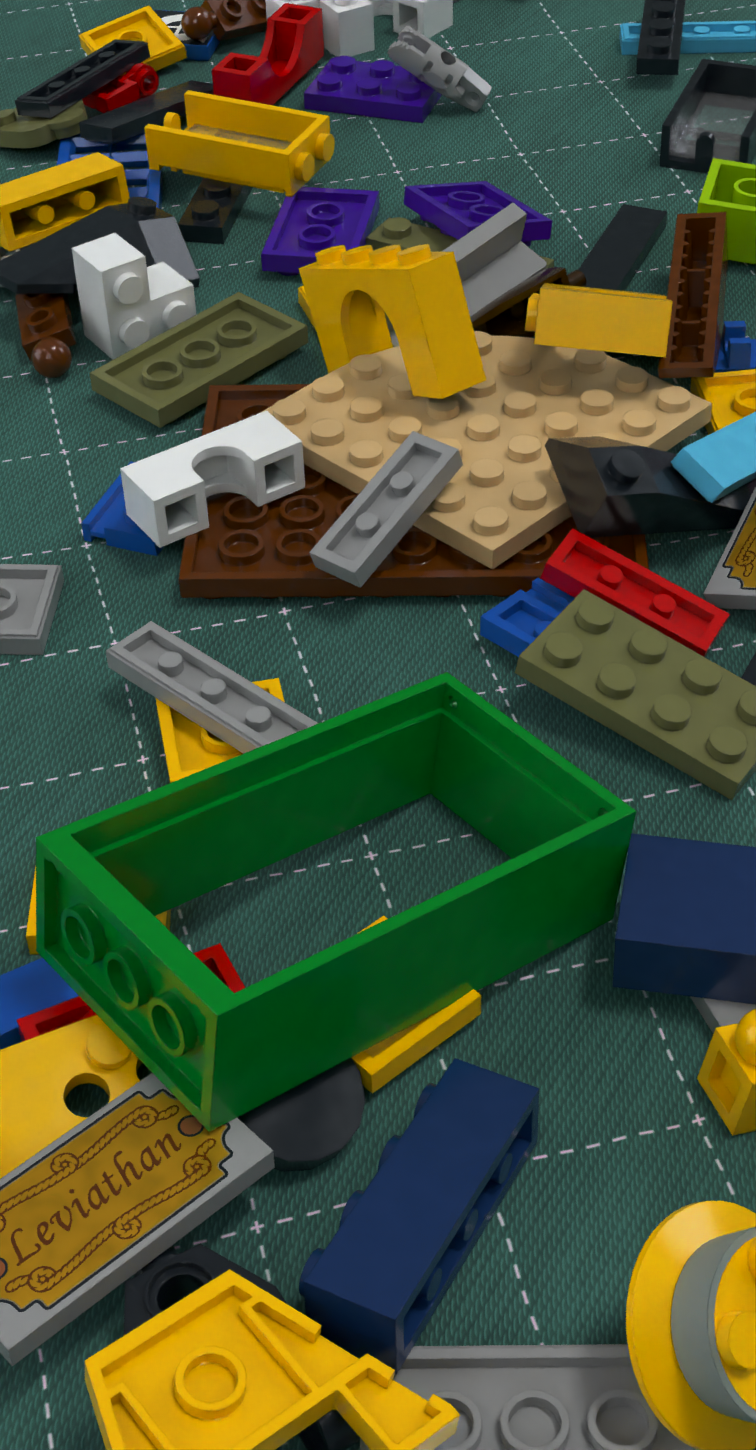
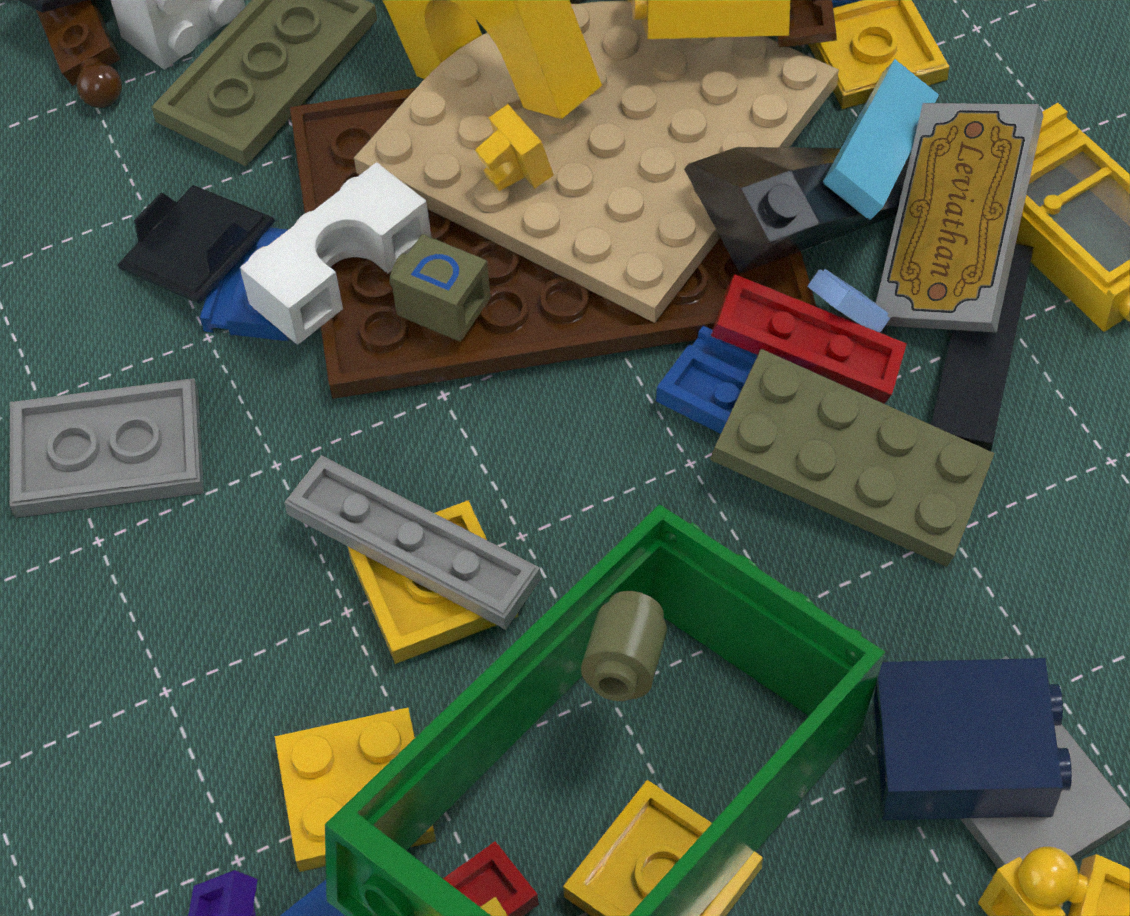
camera: 10 degrees left, 15 degrees up
(85, 471) = (192, 241): none -> black piece
(296, 510) = (440, 287): none -> olive brick
(373, 756) = (625, 646): none -> olive brick
(386, 508) = (535, 275): light grey plate -> none
(393, 407) = (513, 152): none -> yellow tile
(680, 570) = (849, 300): none -> light blue tile

